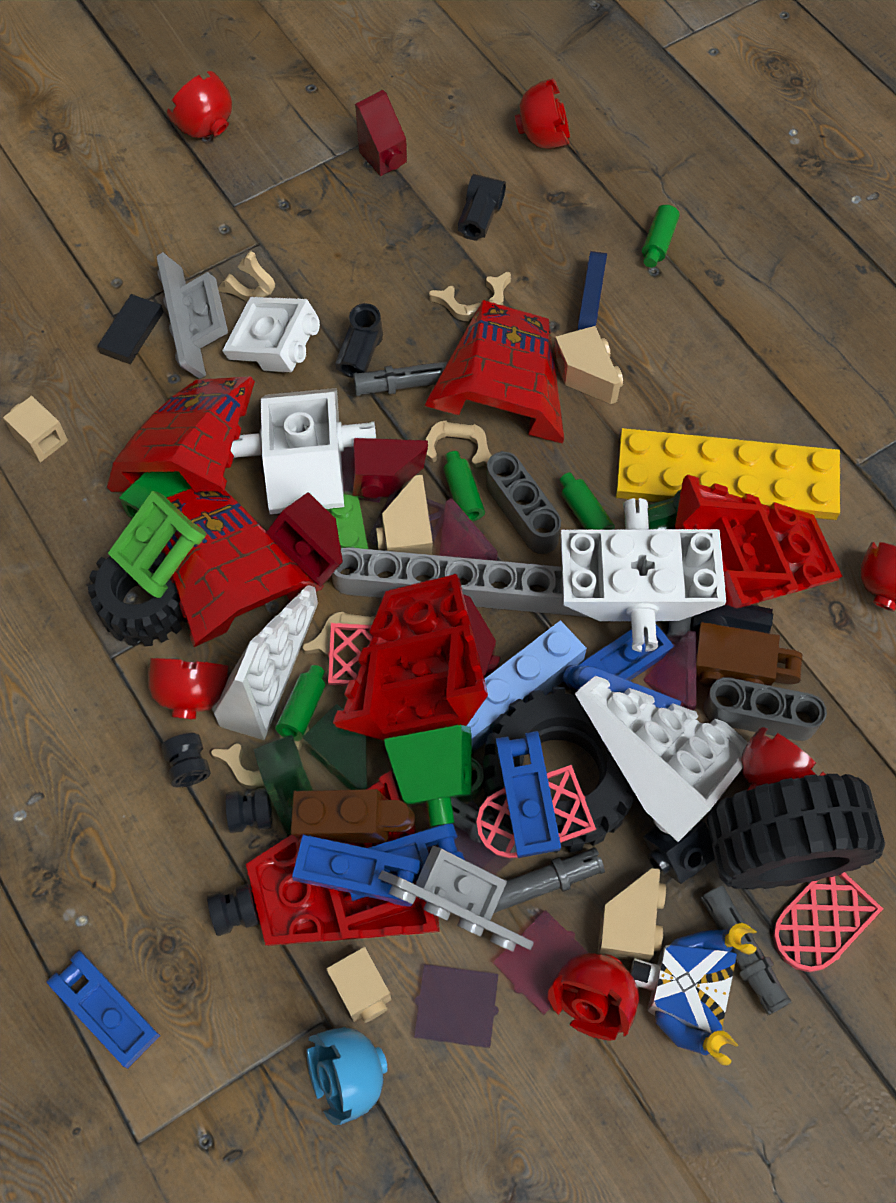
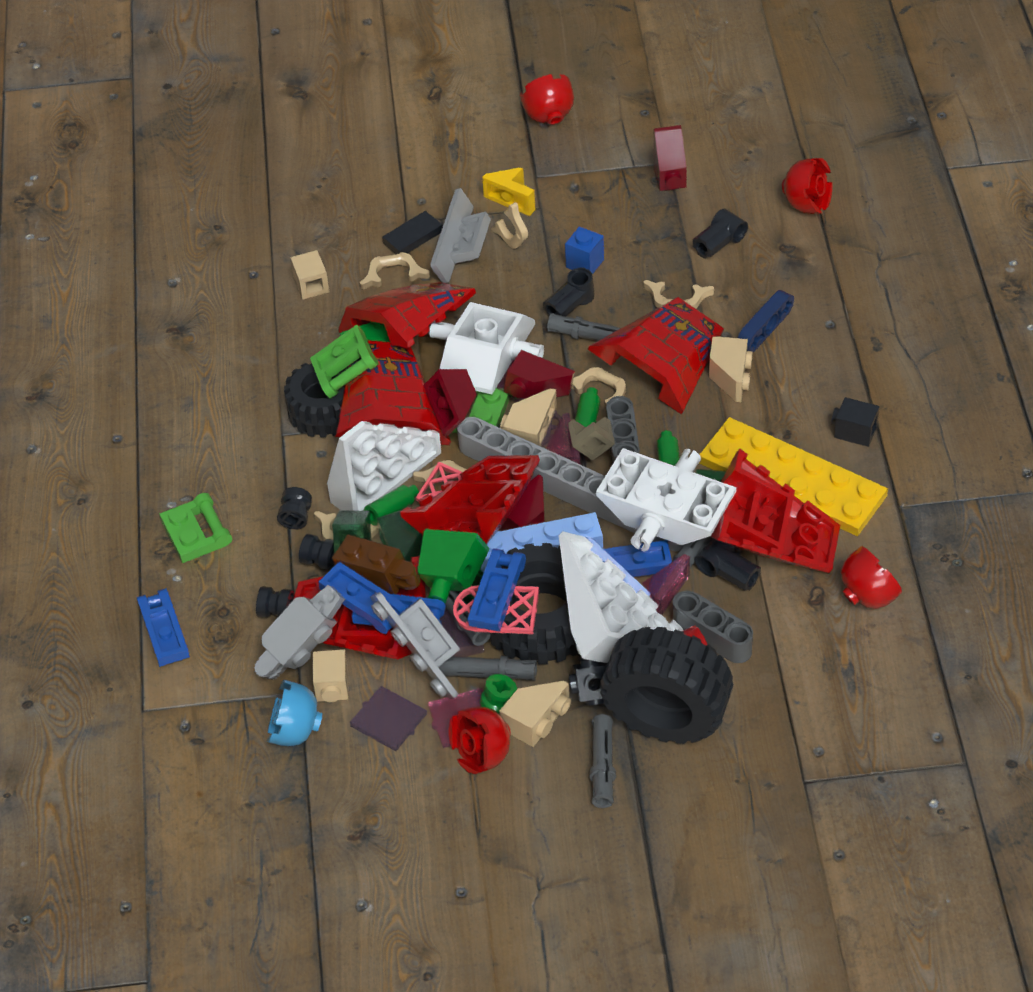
camera: 30 degrees right, 15 degrees down
(60, 850) = (186, 532): none -> bright green plate
(133, 366) = (392, 260): none -> tan helmet
(186, 685) = (313, 459): red cylinder -> none
(212, 235) = (508, 187): none -> yellow slope
(273, 333) = (510, 268): white plate -> none
(295, 952) = (298, 632): none -> light grey hinge
(346, 280) = (584, 250): none -> blue brick
(496, 519) = (592, 439): none -> dark tan panel
(570, 925) = (497, 692): none -> green wheel
(660, 235) = (847, 298): green cylinder -> none
(694, 988) = (552, 761): torso -> none
(743, 656) = (719, 586): reddish brown brick -> none
(760, 381) = (855, 421): none -> black brick
(838, 950) = (712, 779): coral window -> none

